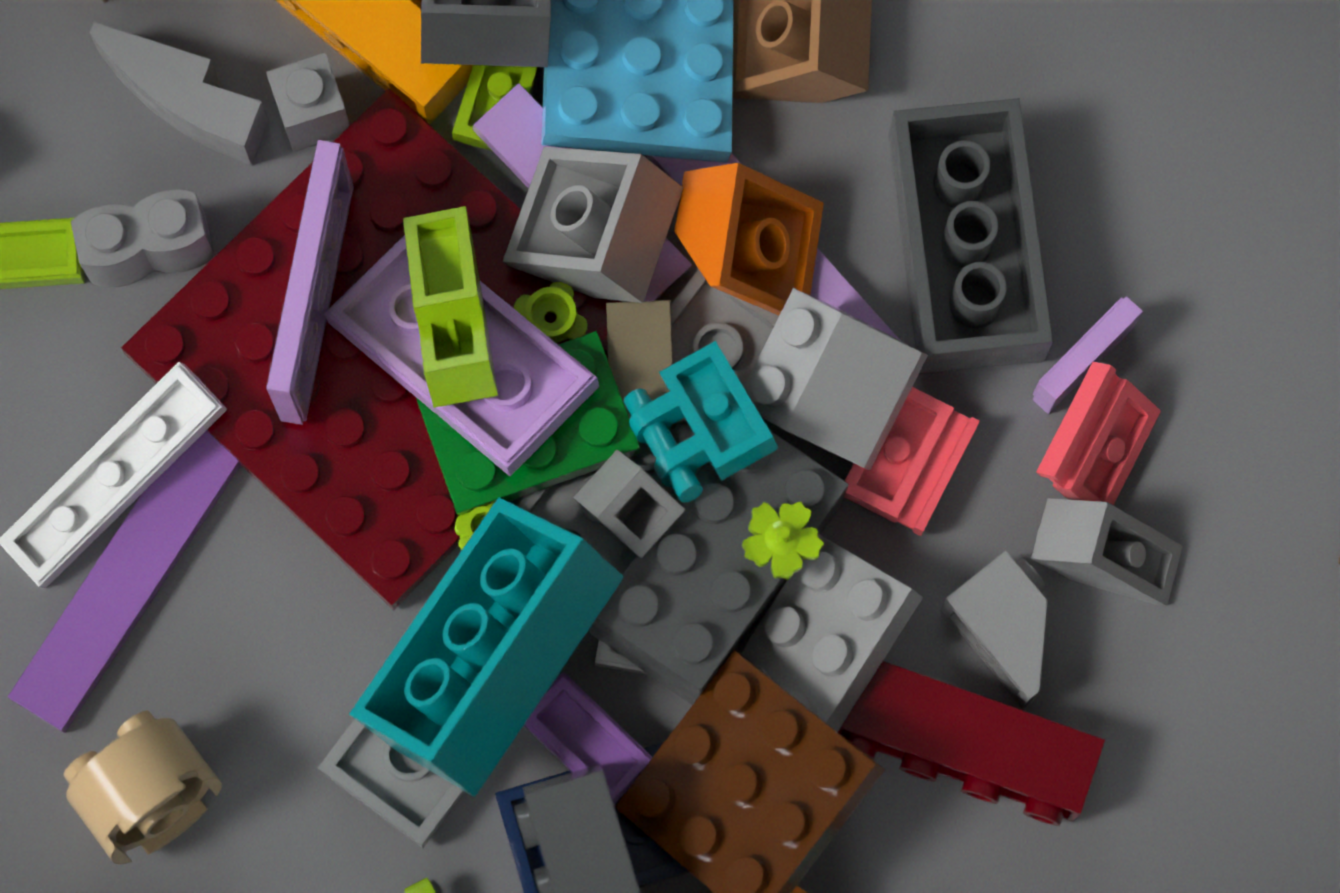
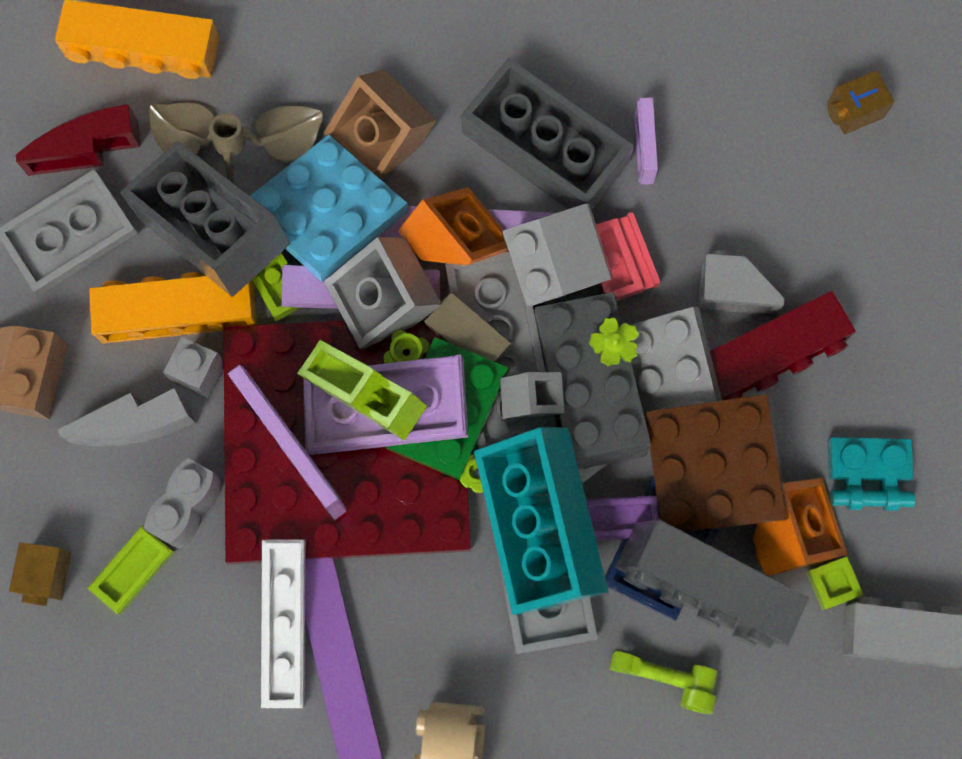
camera: 45 degrees left, 0 degrees up
(717, 410) = (528, 316): teal plate -> none
(1099, 437) = (690, 170): coral plate -> none
(1106, 550) = (740, 213): light grey slope -> none

